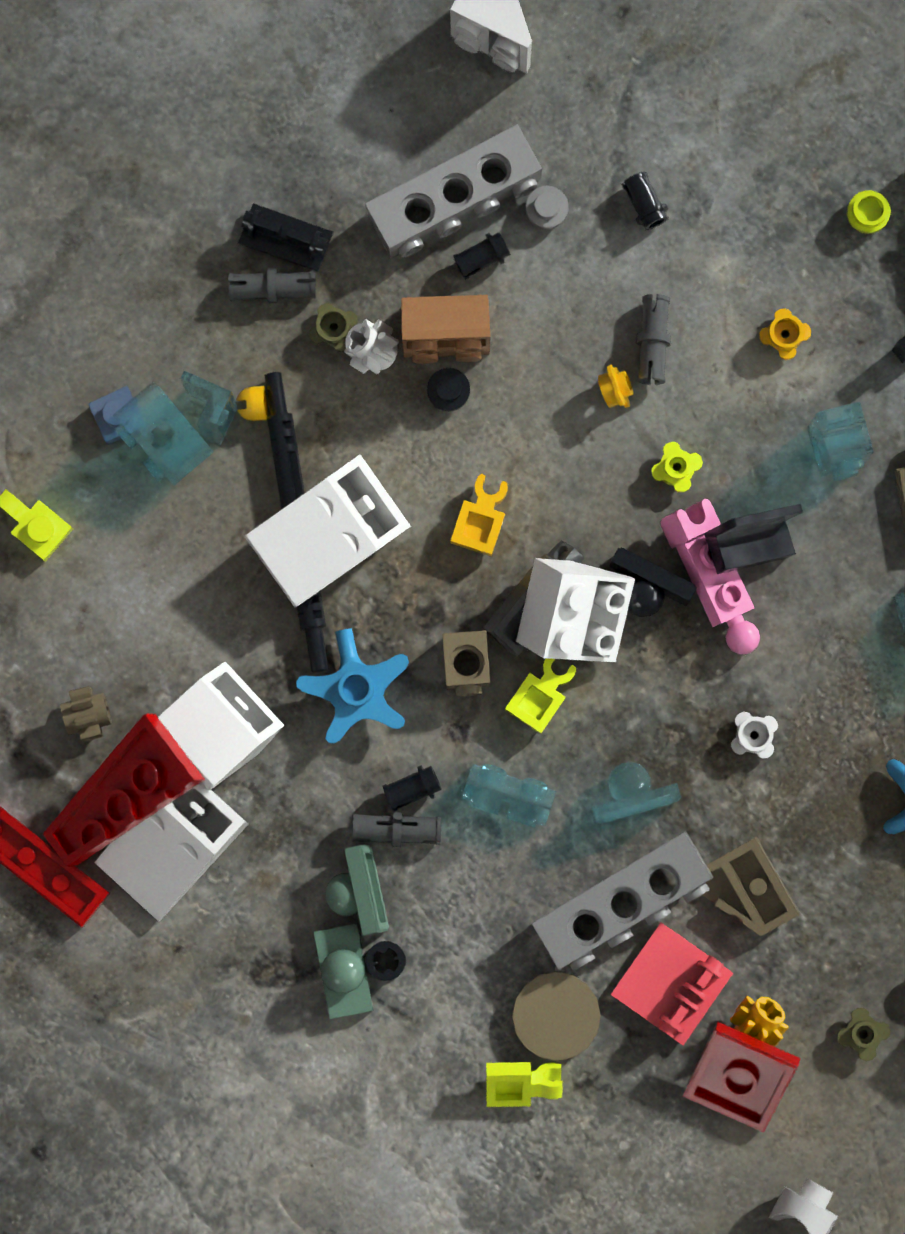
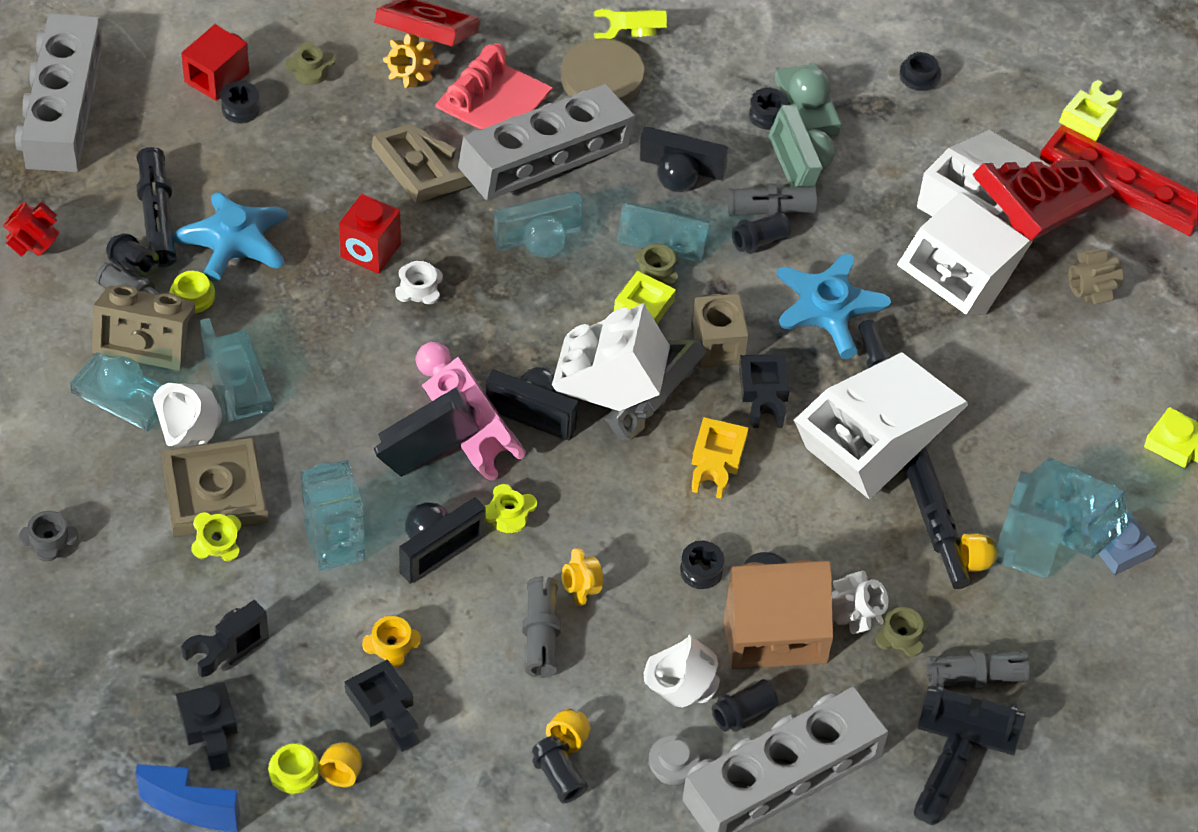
camera: 170 degrees right, 30 degrees down
(49, 940) = (1091, 111): none -> neon yellow plate
(218, 1007) = (920, 71): none -> black plate
(318, 181) = (943, 779): none -> black axle
(428, 601) = (766, 385): none -> black plate
(484, 882) = (682, 158): none -> black tile
(512, 392) = (709, 555): none -> black bush
(527, 277) = (684, 673): none -> white piece
(529, 742) = (661, 257): none -> olive plate
(636, 235) = (570, 722): none -> yellow hinge
(748, 440) = (438, 536): none -> black tile
(794, 273) = (384, 697): none -> black plate
(803, 787) = (370, 233): none -> red brick
(828, 214) = (340, 764): none -> yellow hinge

